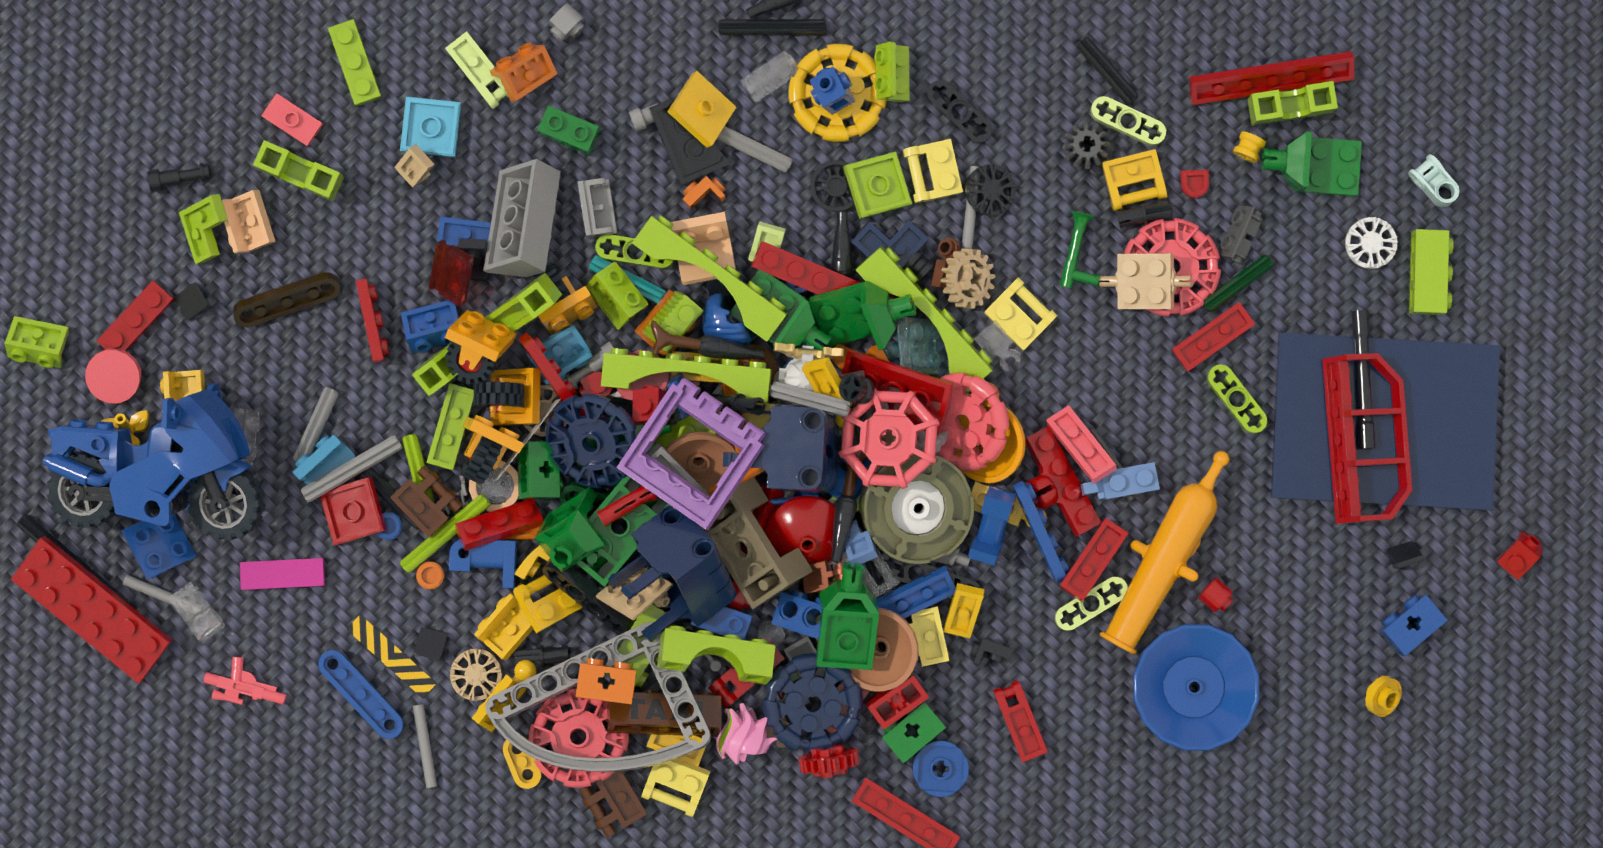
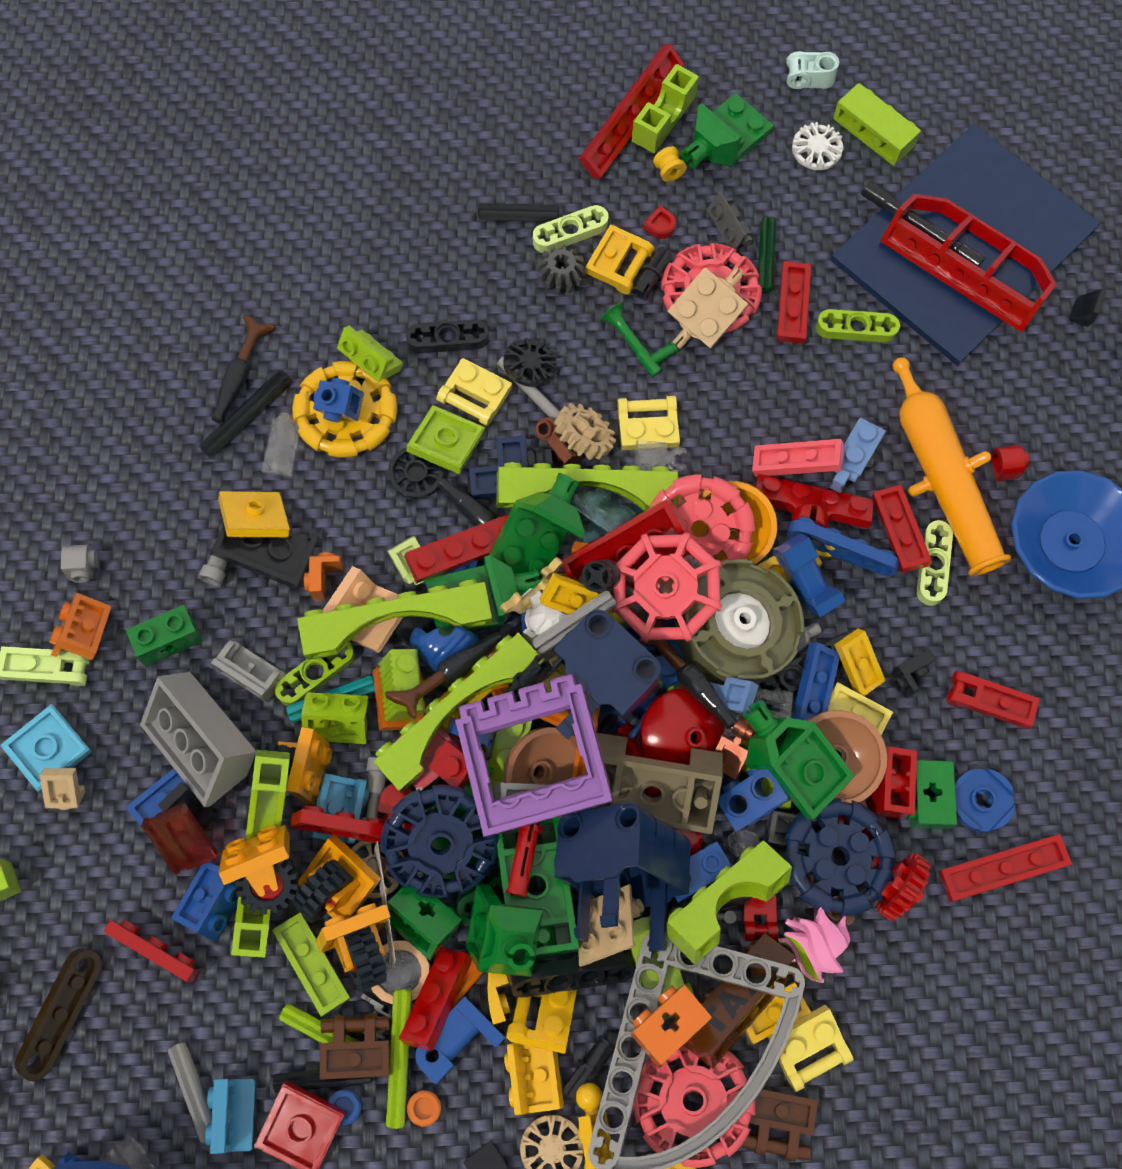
camera: 50 degrees left, 15 degrees down
(351, 468) = (261, 1095): light grey axle -> none
(755, 149) = (326, 507): light grey axle -> none

